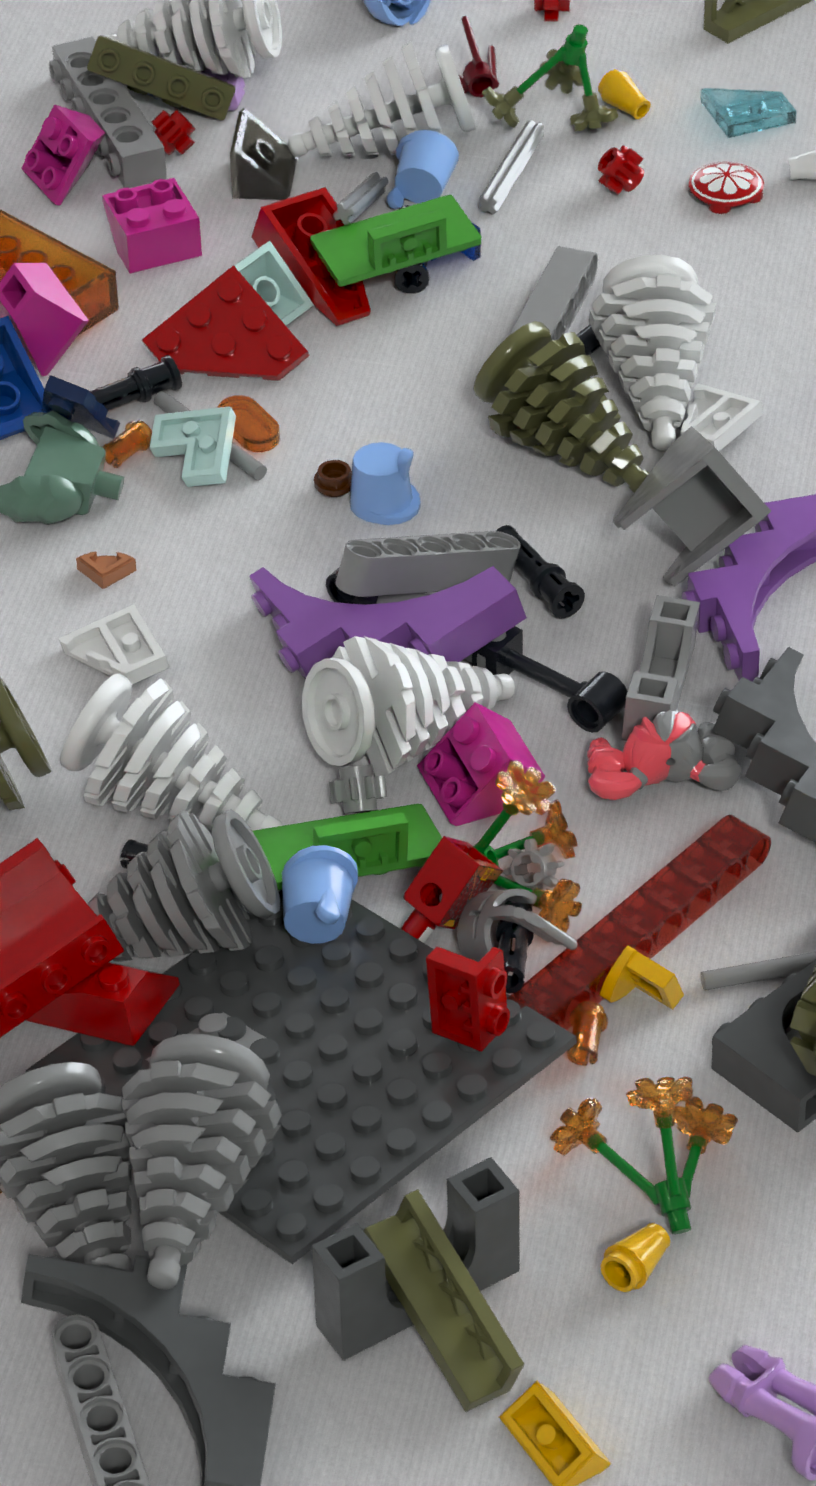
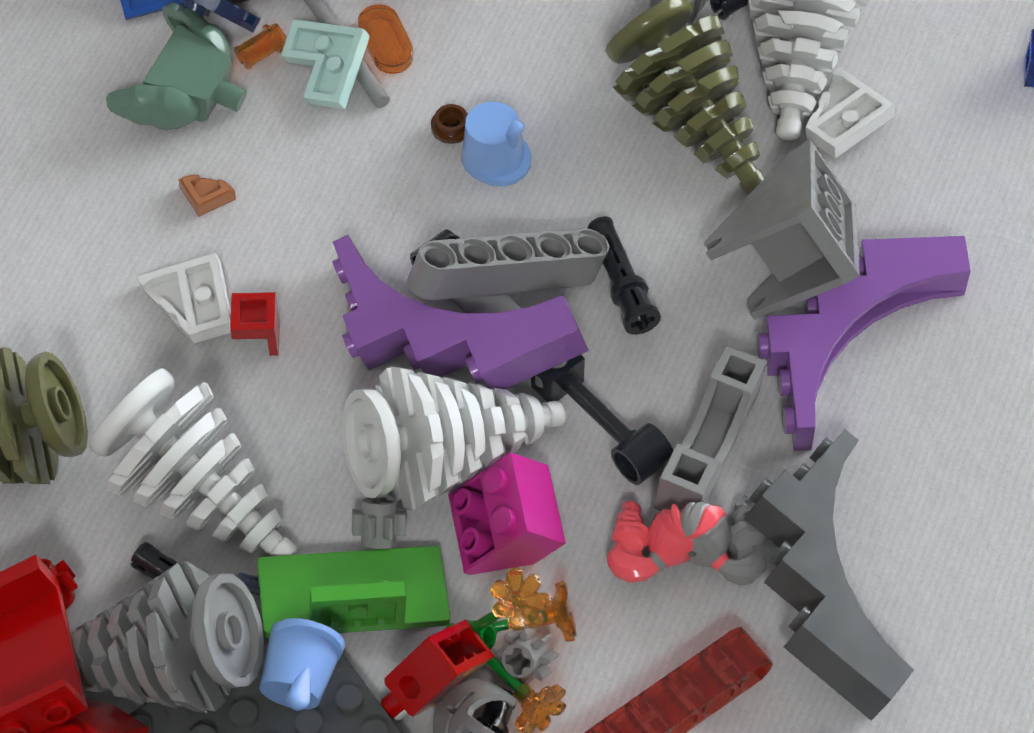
camera: 10 degrees right, 15 degrees up
(190, 646) = (256, 318): none -> red panel

